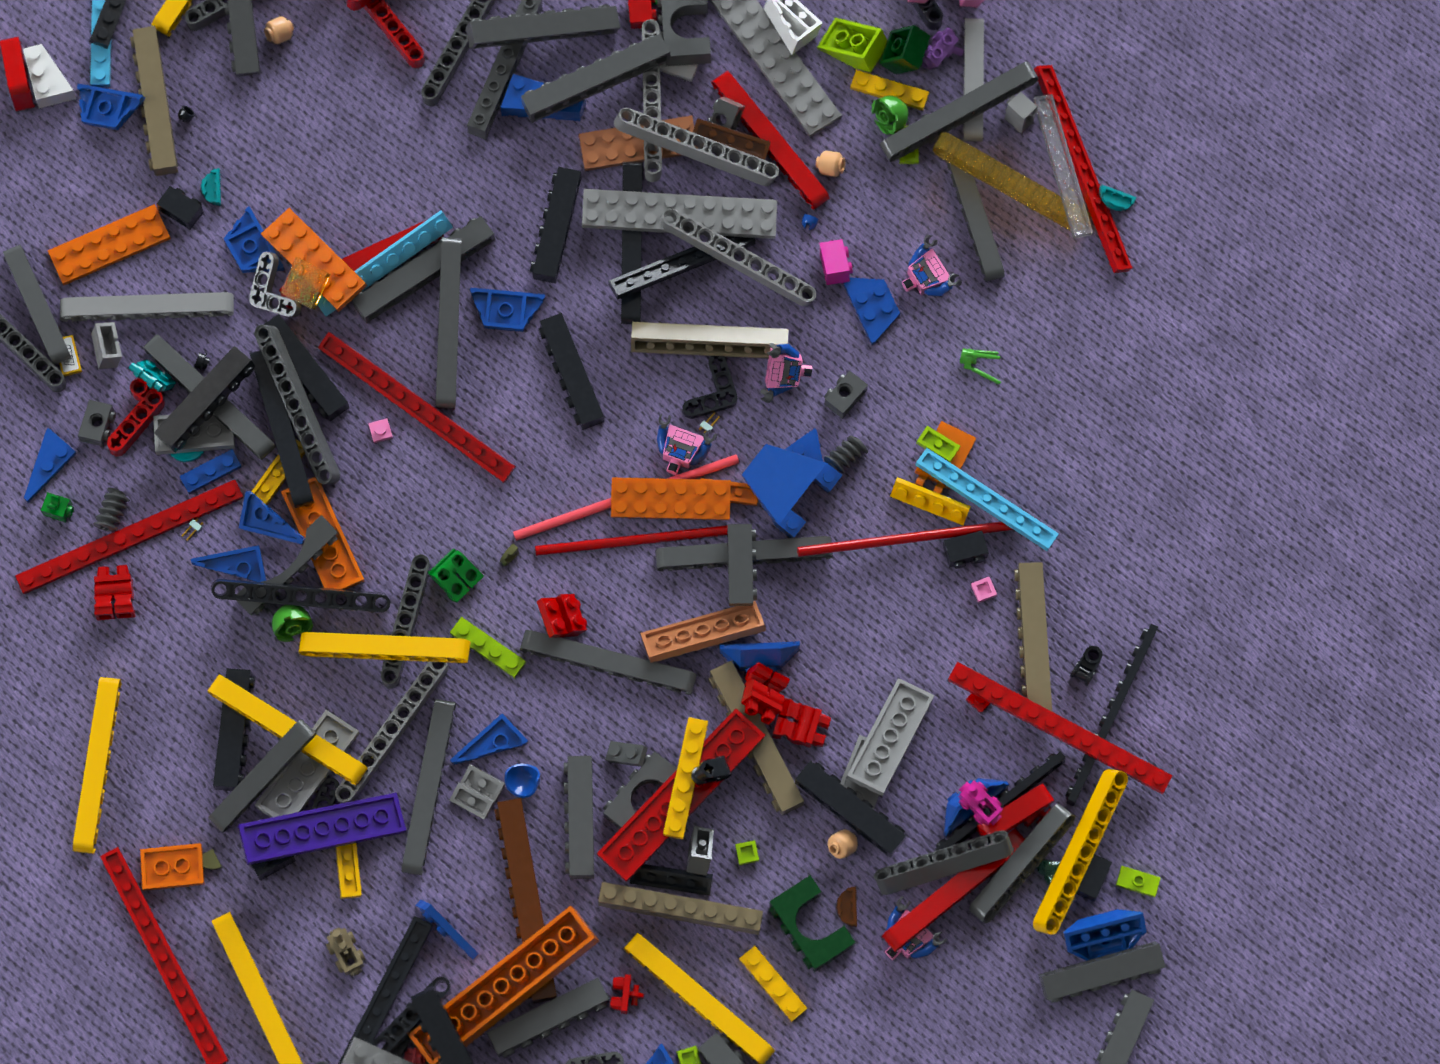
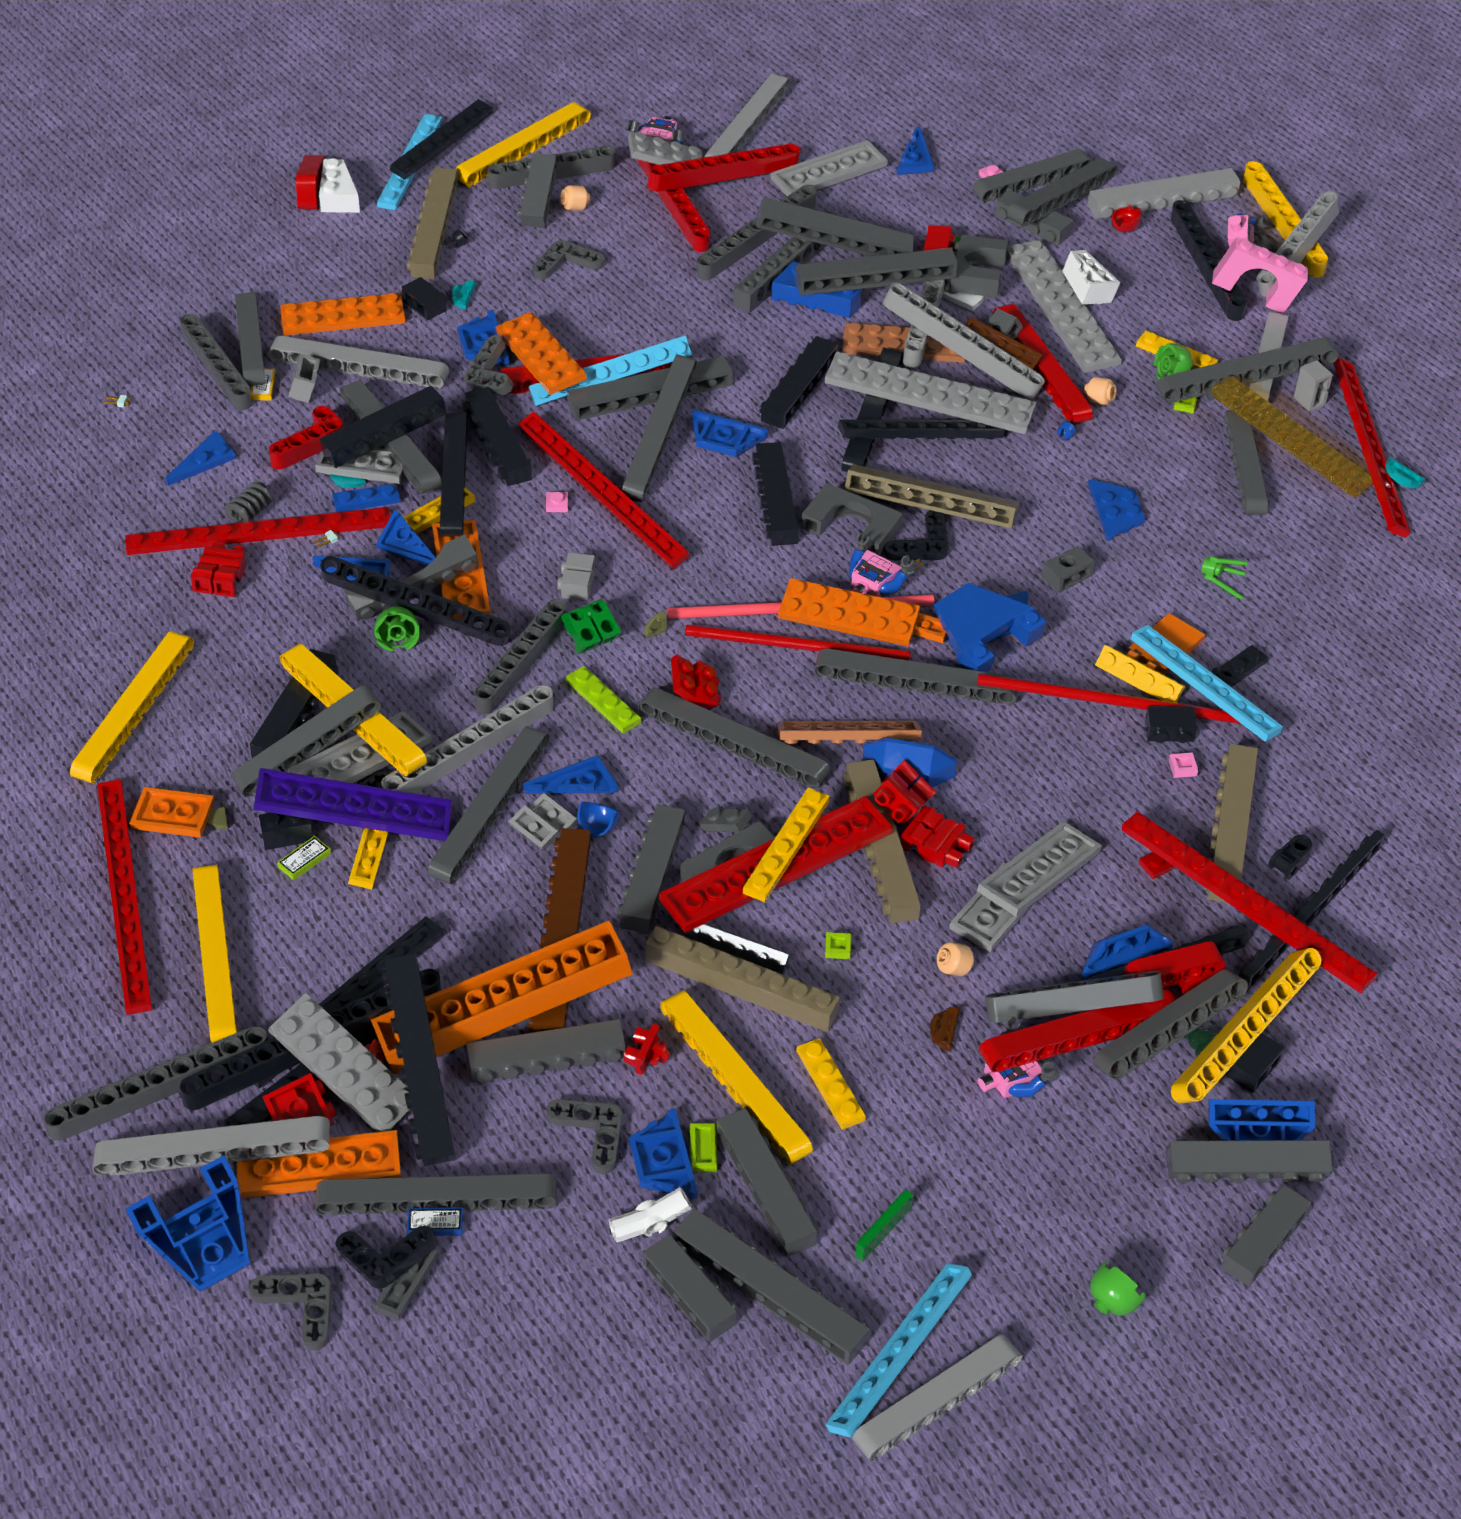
camera: 15 degrees right, 25 degrees down
(57, 507) = (194, 488): green brick -> none
(96, 412) = (265, 432): dark grey brick -> none
(106, 106) = (386, 216): blue wing -> none
(152, 375) = (337, 406): teal plate -> none
(294, 107) = (567, 250): none -> dark grey beam
(295, 881) = (304, 858): none -> tile
(304, 410) = (478, 457): dark grey beam -> none
(305, 283) = (524, 363): clear yellow plate -> none
(343, 947) = (331, 926): dark tan brick -> none
(384, 647) = (489, 662): yellow beam -> none
(426, 518) = (577, 576): none -> light grey piece
(445, 928) = (456, 934): blue wing -> none
(626, 368) = (836, 502): none -> dark grey arch
(700, 850) = (782, 923): dark grey brick -> none
(711, 771) = (819, 838): black piece -> none
(728, 257) = (982, 433): light grey beam -> none
(741, 564) = (909, 676): dark grey brick -> none
(783, 370) = (1005, 529): torso -> none
(815, 952) = (892, 1059): dark green arch -> none
(834, 262) = (1085, 462): dark pink brick -> none
(845, 453) = (1059, 614): dark grey piece -> none
(850, 808) = (974, 924): black brick -> none
(854, 44) = (1150, 311): lime slope -> none
(905, 49) = (1201, 318): dark green brick -> none
(928, 272) = (1183, 489): torso -> none
(938, 444) = (1161, 624): lime plate -> none
(941, 47) = (1238, 327): medium lavender brick -> none
(976, 798) = (1133, 934): dark pink brick -> none
(1011, 466) = (1241, 666): none -> black plate
(1062, 166) = (1350, 432): clear plate -> none
(1138, 881) = (1313, 1082): lime plate -> none

